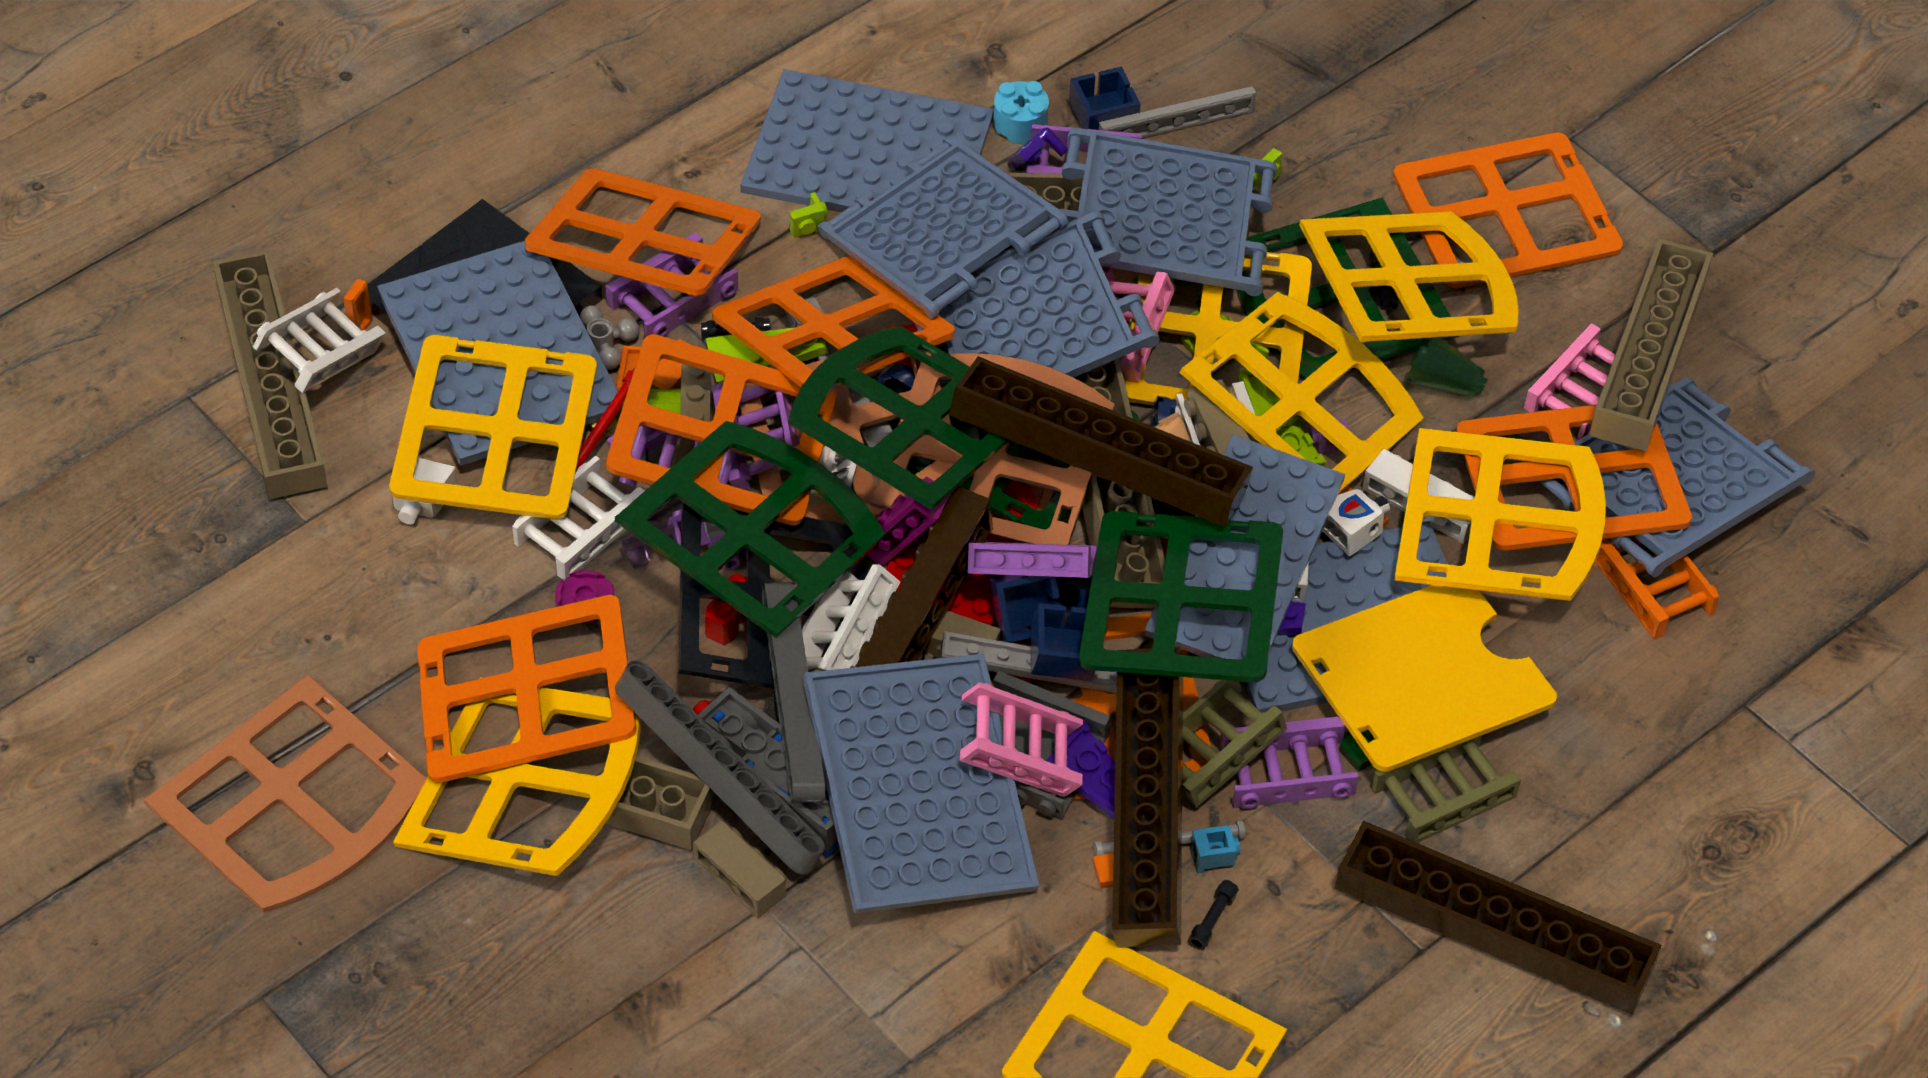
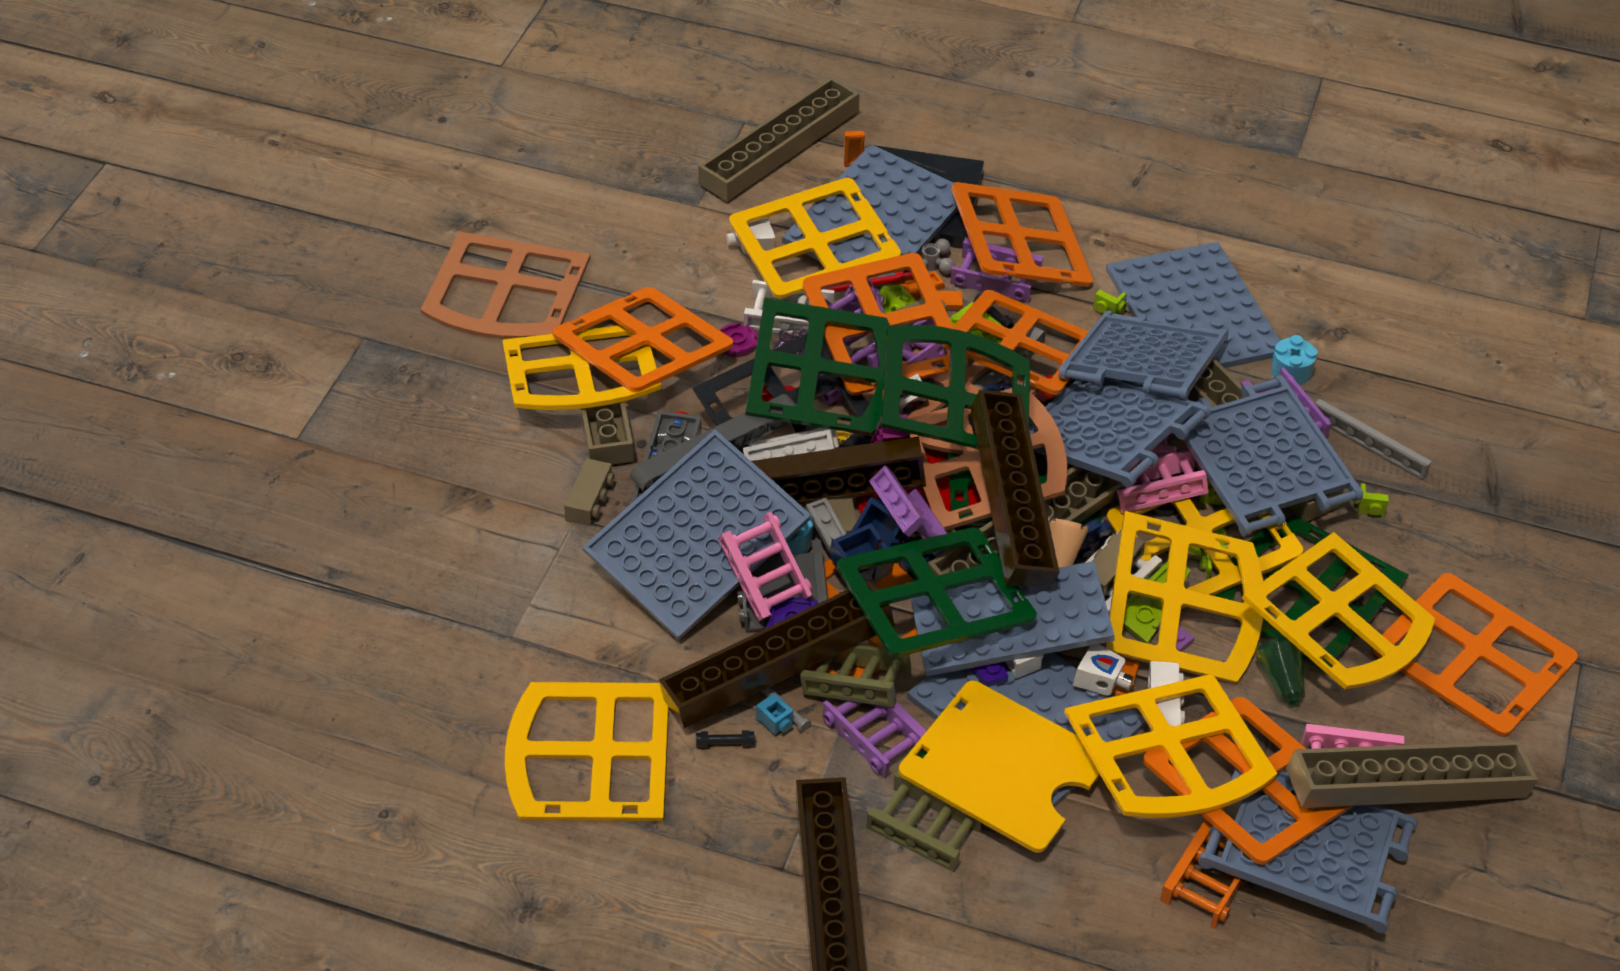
camera: 60 degrees right, 5 degrees down
(327, 362) = (800, 152): white fence -> none
(719, 767) = (640, 428): dark grey beam -> none
(1031, 149) = (1259, 373): dark purple plate -> none
(1112, 100) = (1335, 391): dark blue piece -> none

